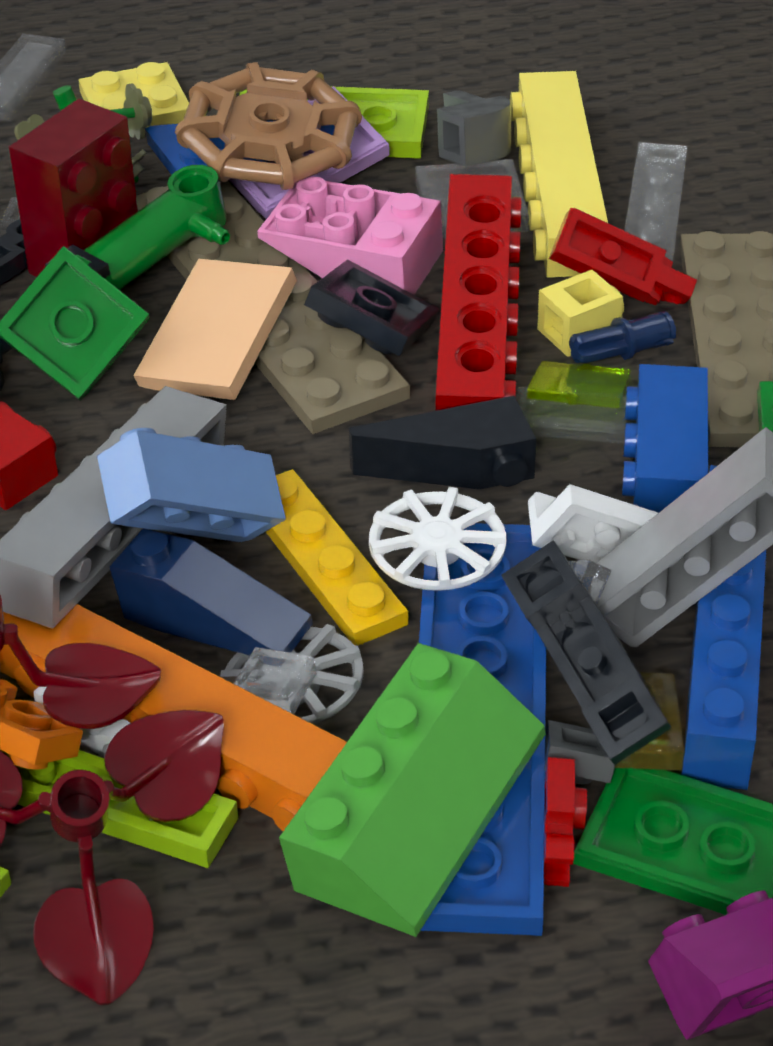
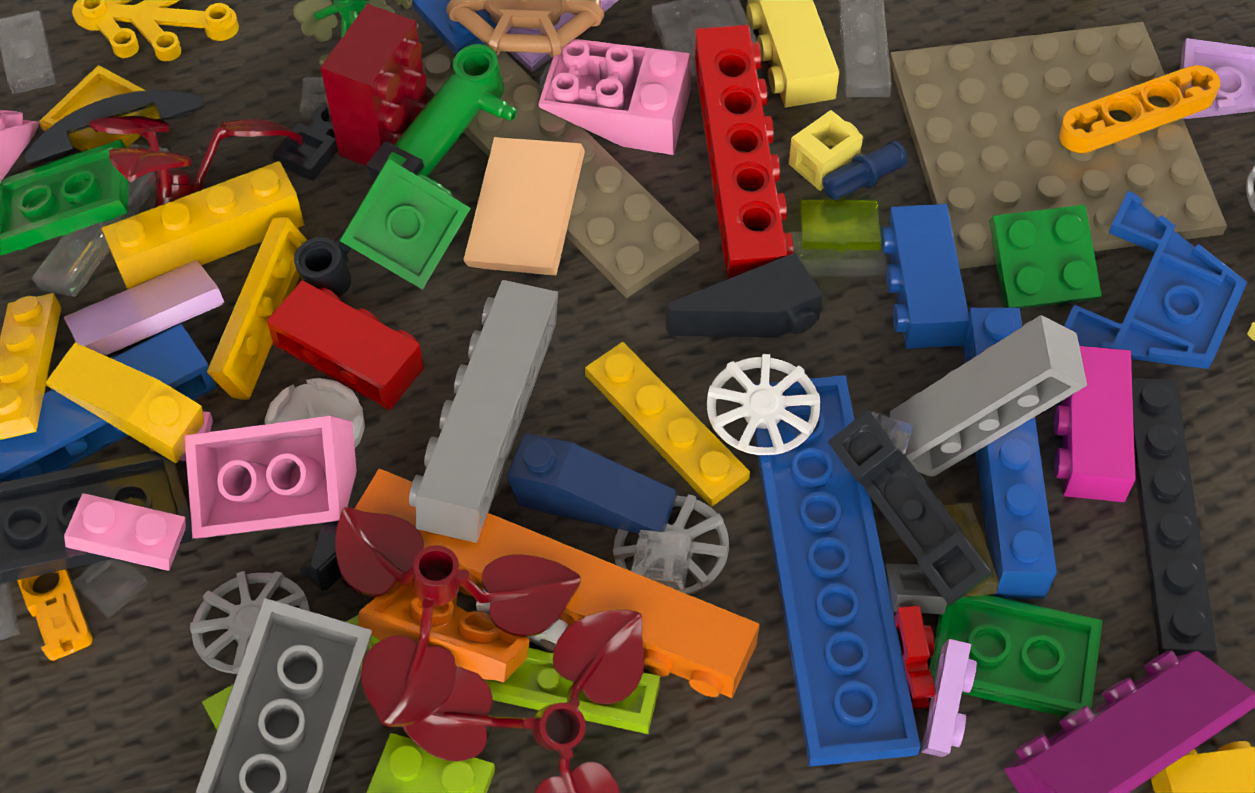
camera: 10 degrees left, 15 degrees up
(189, 486) = (556, 389): medium blue brick -> none
(371, 307) = (653, 170): black plate -> none
(411, 791) = (803, 655): bright green slope -> none
(579, 893) = (953, 676): none -> lavender plate
(583, 522) = (884, 378): white bracket -> none
(620, 259) = (849, 94): red hinge -> none

